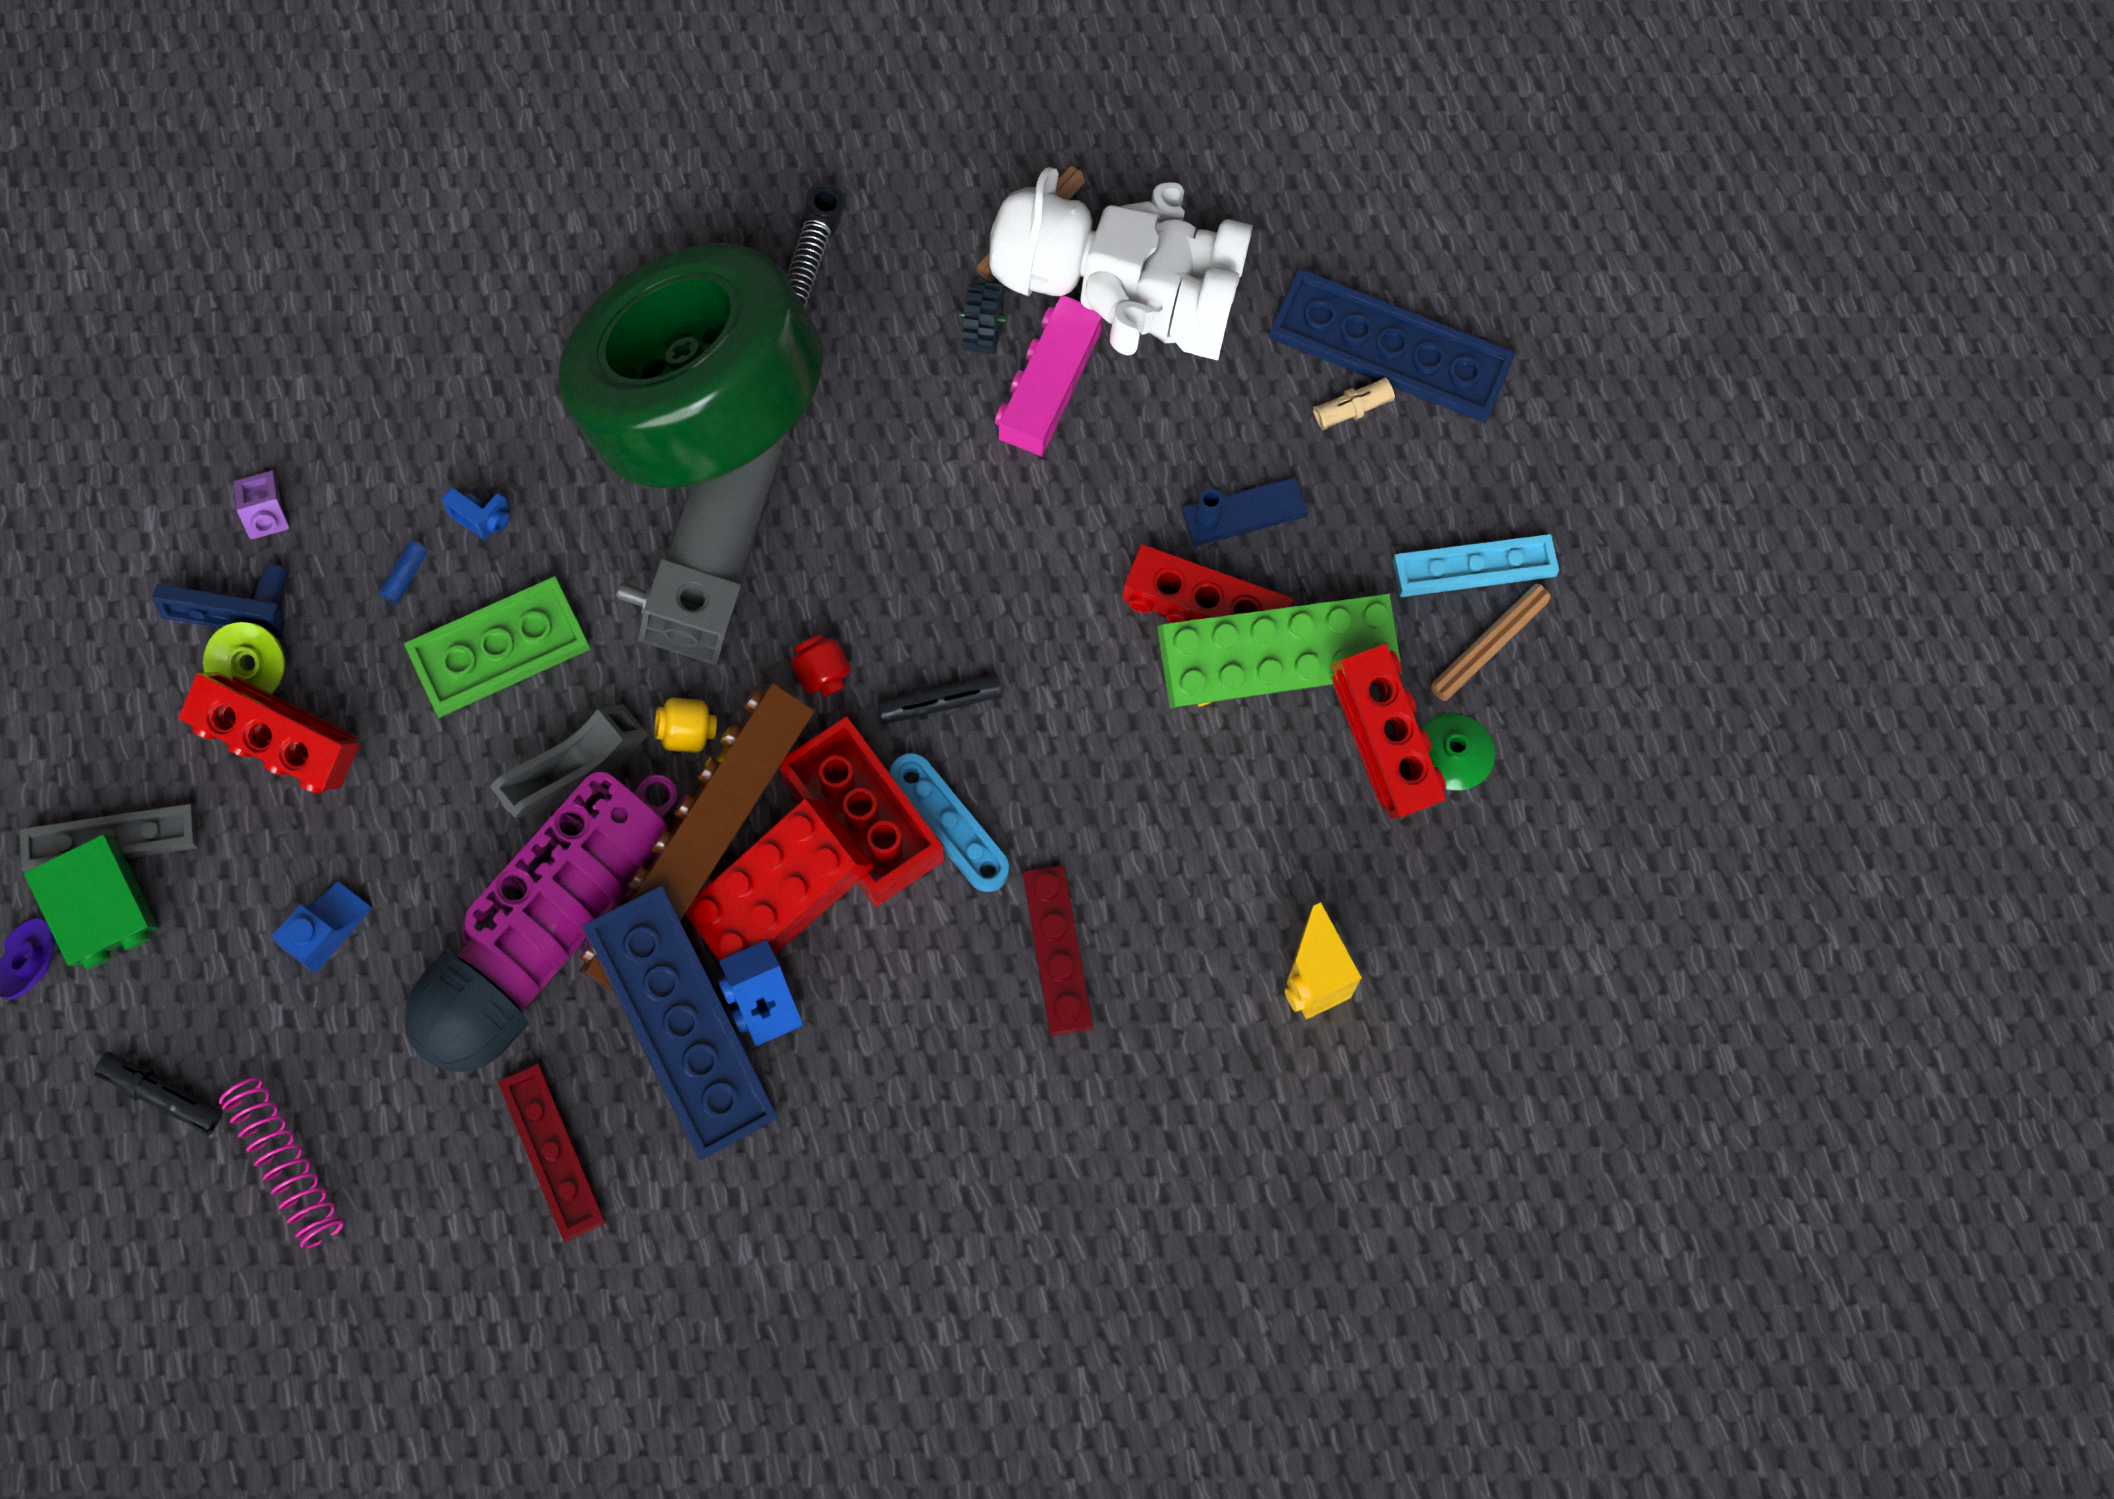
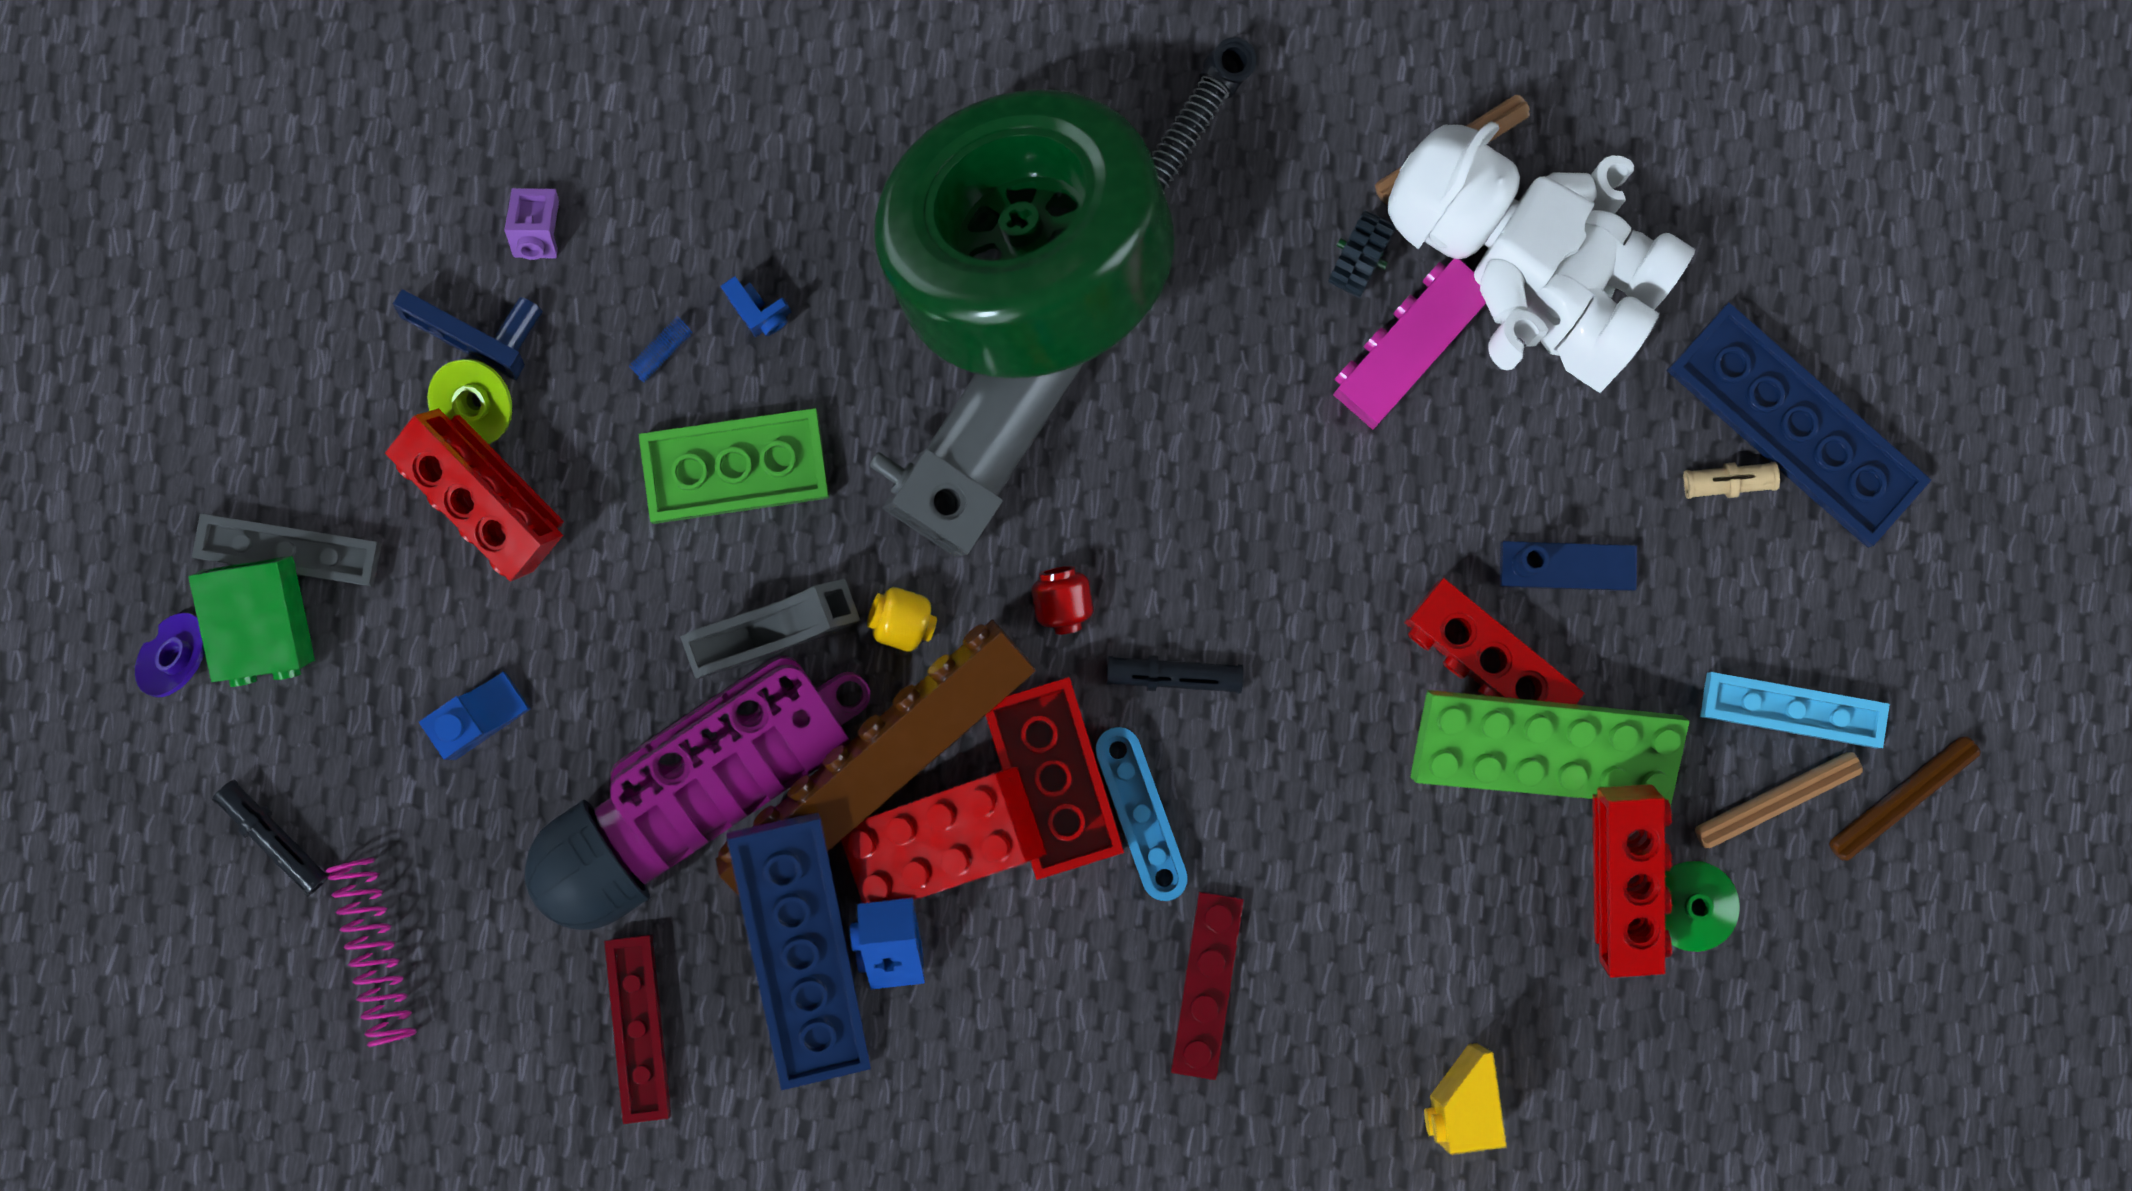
camera: 20 degrees right, 15 degrees up
(1594, 608) = (1904, 798): none -> reddish brown axle

